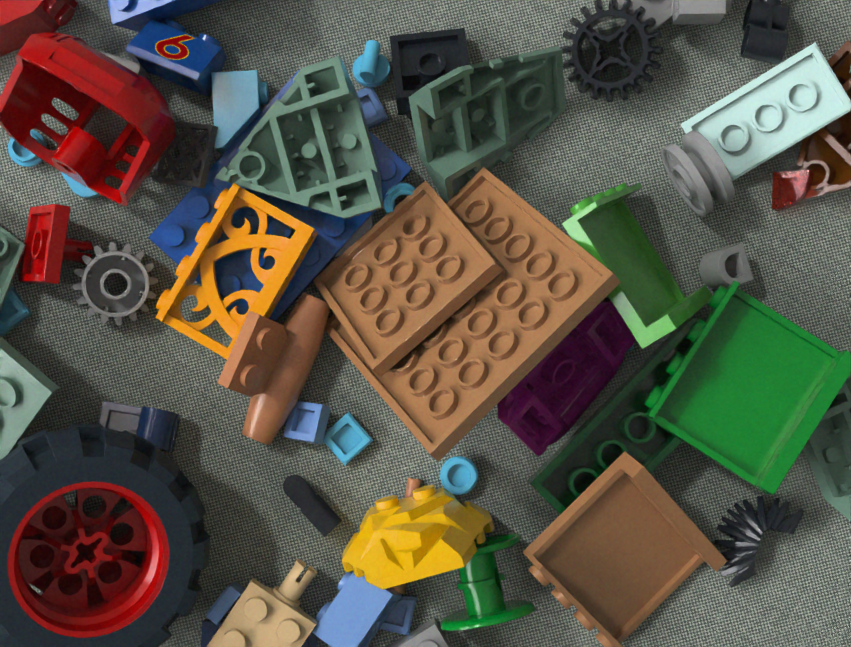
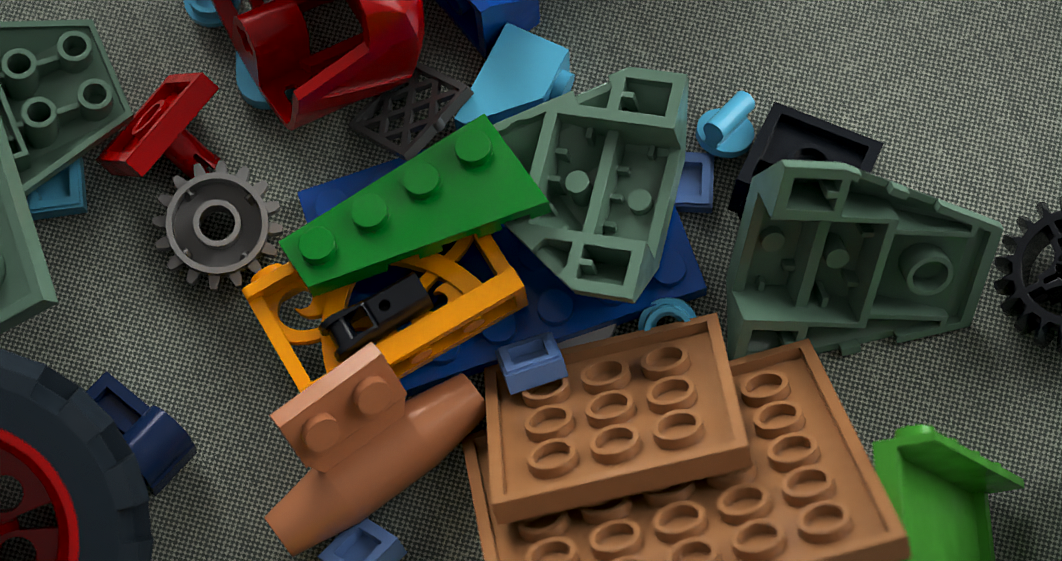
camera: 35 degrees right, 15 degrees down
(234, 209) = (435, 198): none -> green wing
(243, 284) = (386, 310): none -> black bar
(339, 266) = (531, 362): none -> medium blue tile

